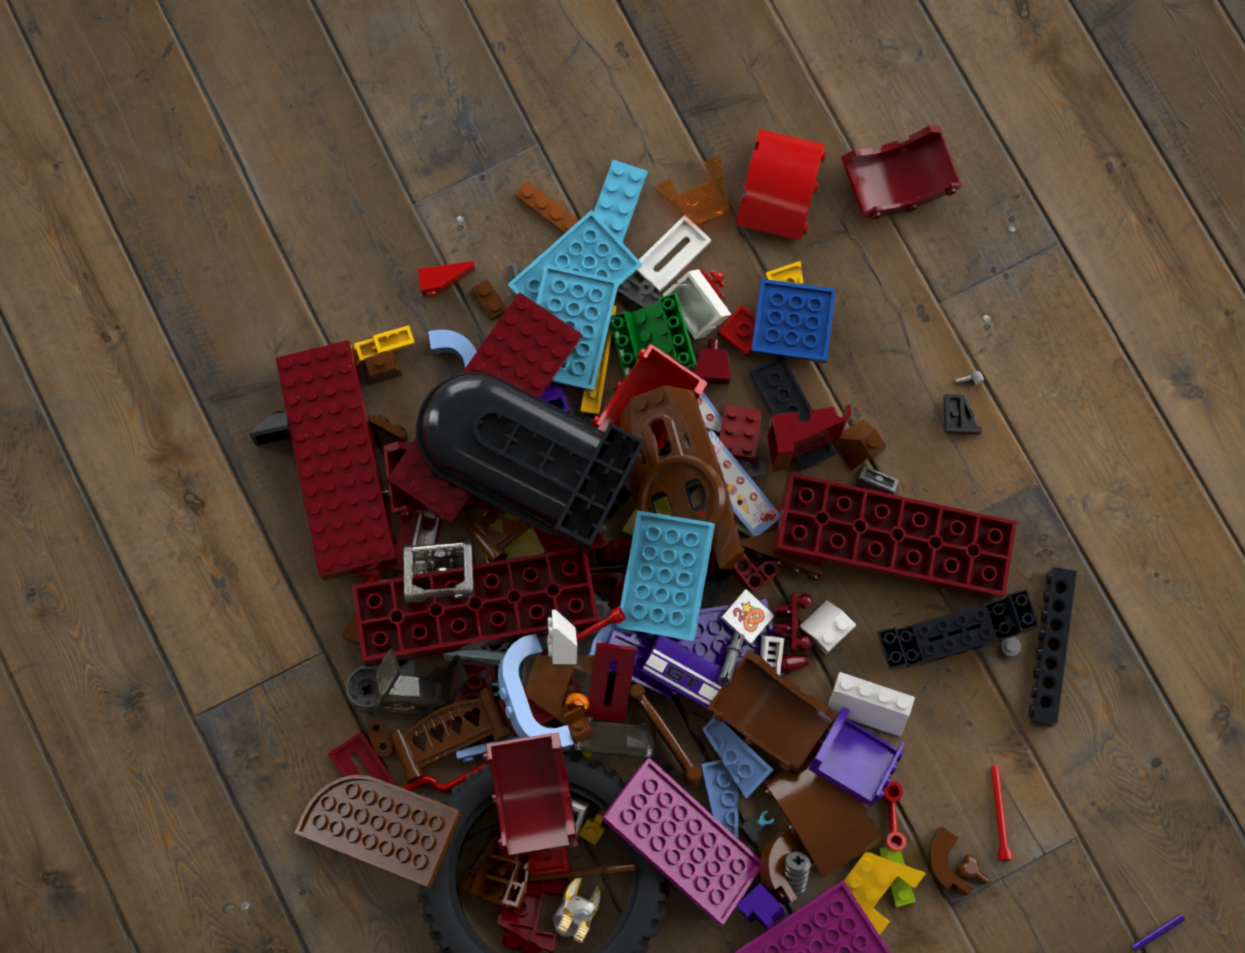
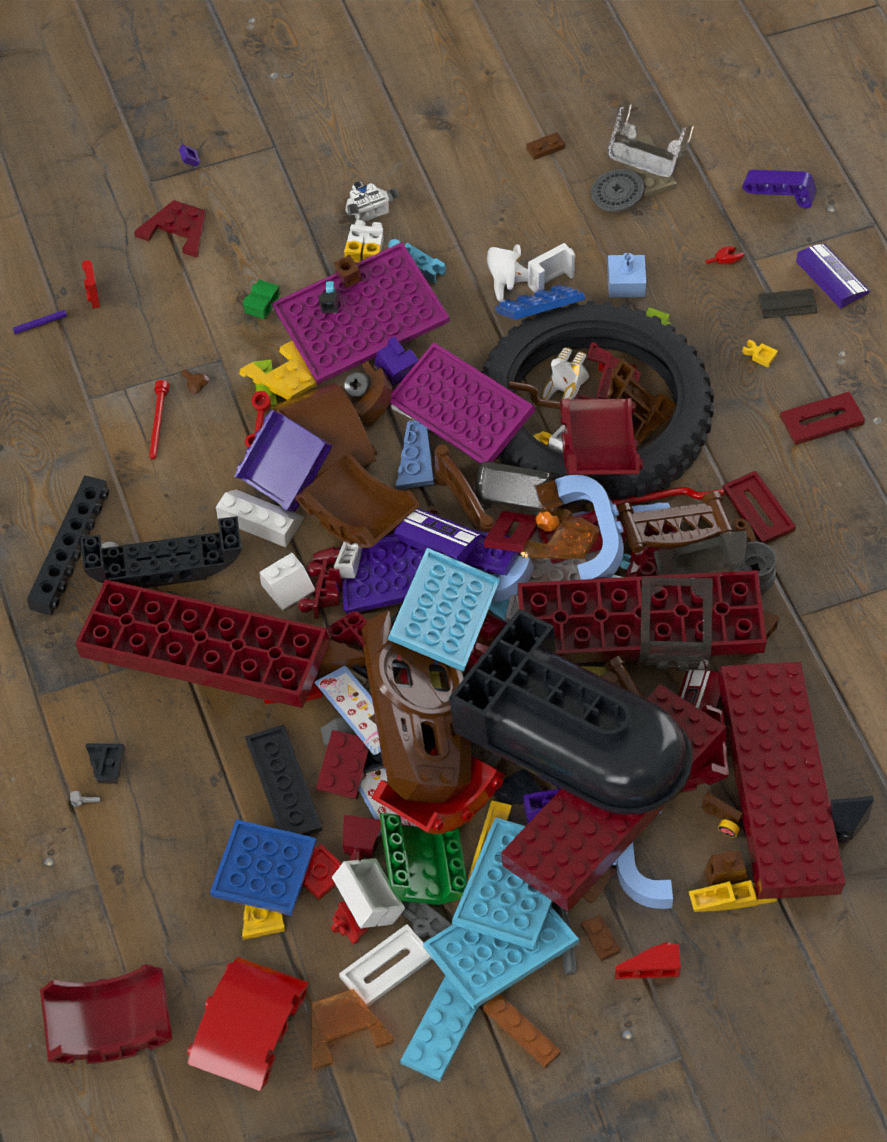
camera: 170 degrees left, 20 degrees down
(333, 896) = (824, 427): none -> dark red piece
(381, 410) = (729, 828): none -> yellow tile
(381, 826) = (746, 447): reddish brown plate -> none
(561, 640) = (555, 559): white slope -> none
(614, 617) = (500, 582): red piece -> none
(733, 652) = (386, 551): dark grey pin -> none
(740, 760) = (391, 470): medium blue wing -> none
(747, 616) = (367, 589): white tile -> none
(752, 827) = (392, 428): pearl dark grey piece -> none
(792, 438) = (274, 726): dark red panel -> none
(859, 444) = (217, 746): reddish brown slope -> none
(876, 481) = (207, 710): dark grey slope -> none
(939, 862) = (221, 395): reddish brown arch -> none

